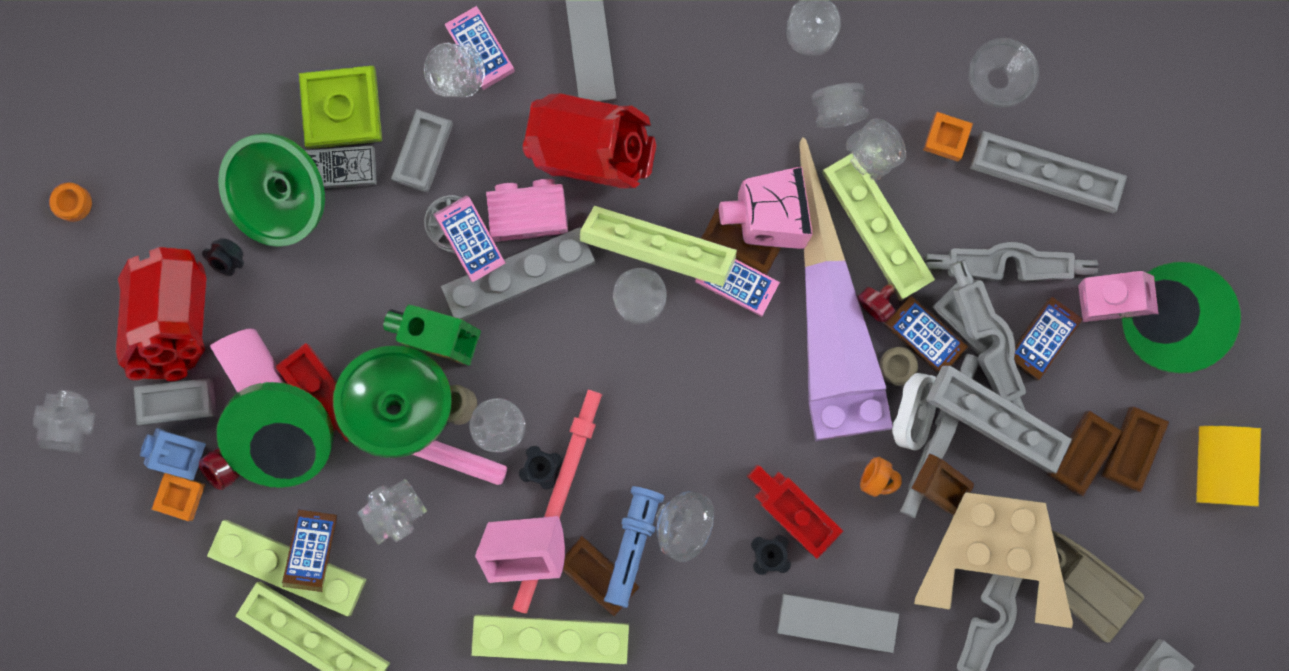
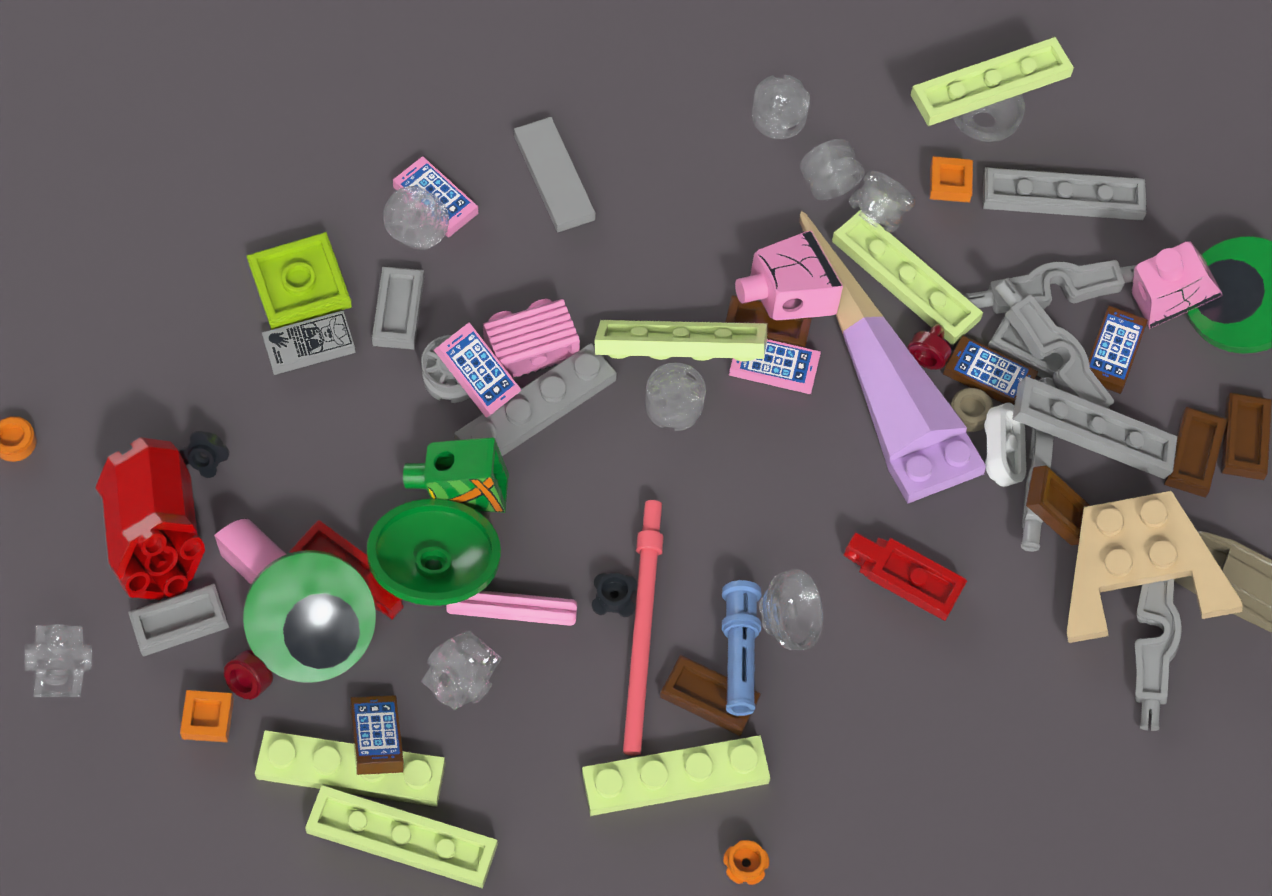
camera: 20 degrees left, 20 degrees down
(172, 453) = (188, 667): medium blue bracket -> none
(255, 193) = (219, 373): green dish -> none
(462, 404) = (512, 548): dark tan tile -> none
(497, 425) = (554, 560): clear wheel -> none
(522, 550) = (619, 678): bright pink brick -> none
(589, 140) = (580, 251): red brick -> none
(762, 547) = (895, 615): black plate -> none
(838, 623) = (991, 682): light grey tile -> none
(876, 477) = (985, 518): orange tile -> none
(1013, 52) = (991, 81): none -> yellowish green plate

